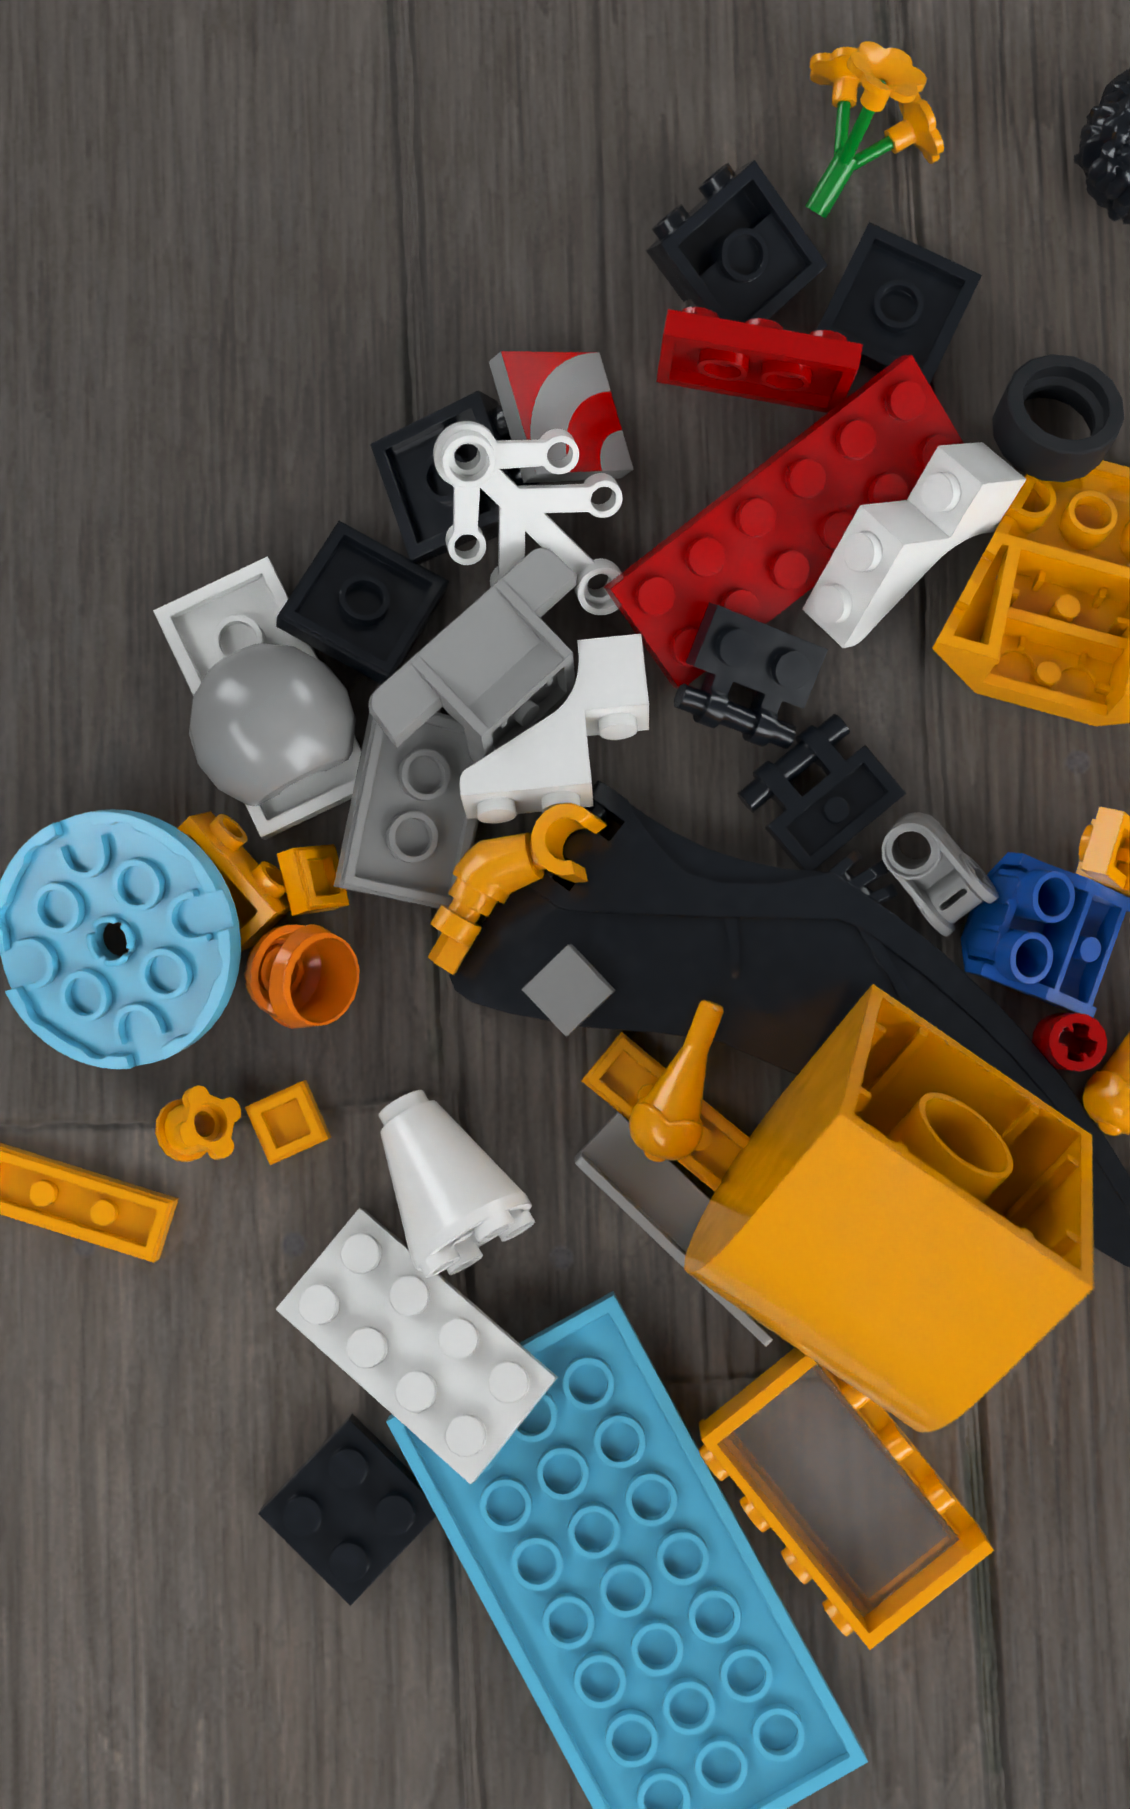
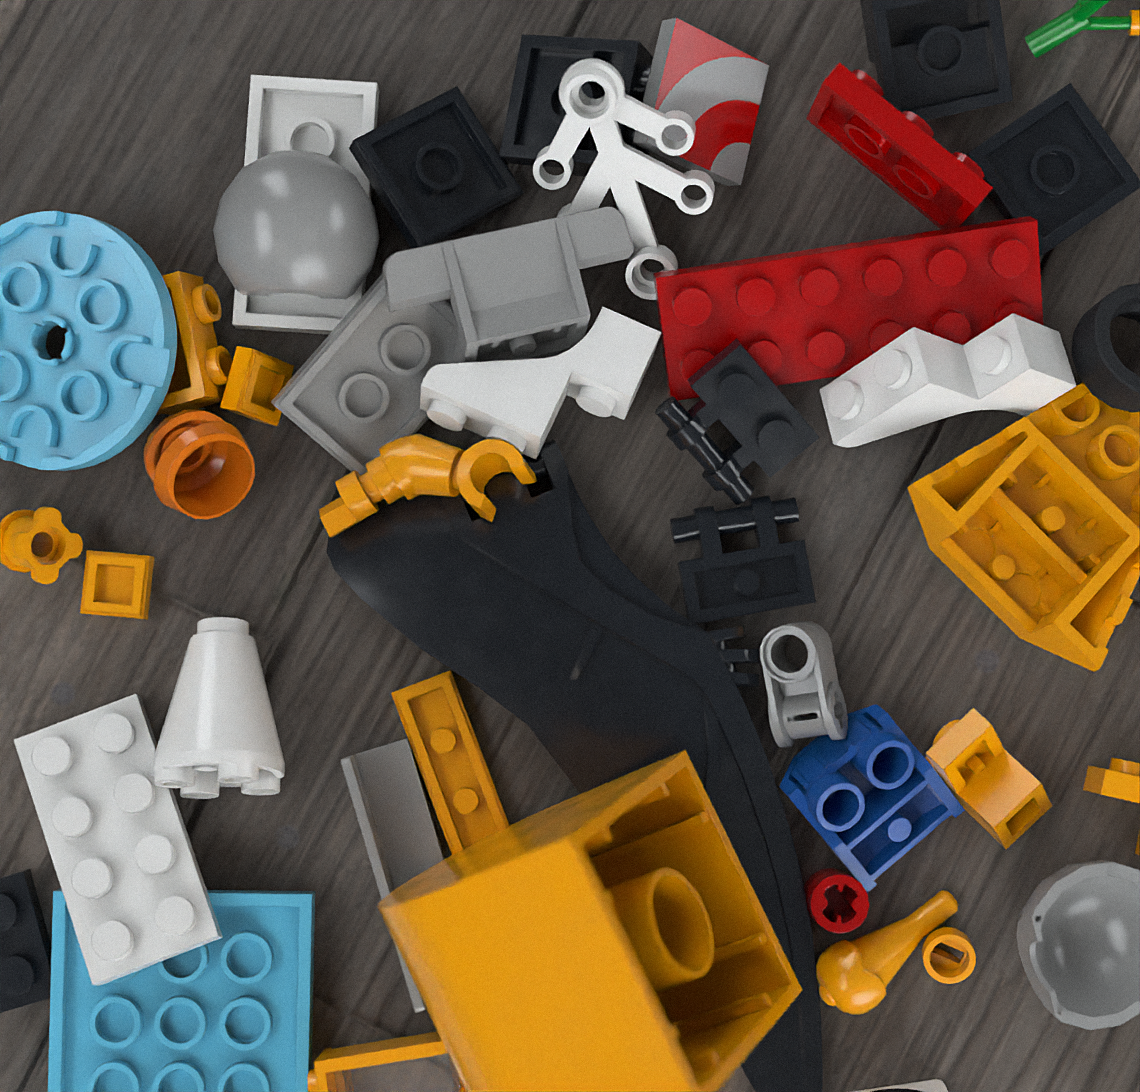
camera: 25 degrees right, 0 degrees up
(568, 990) = (421, 606): light grey tile -> none
(669, 1117) = (445, 767): light orange piece -> none

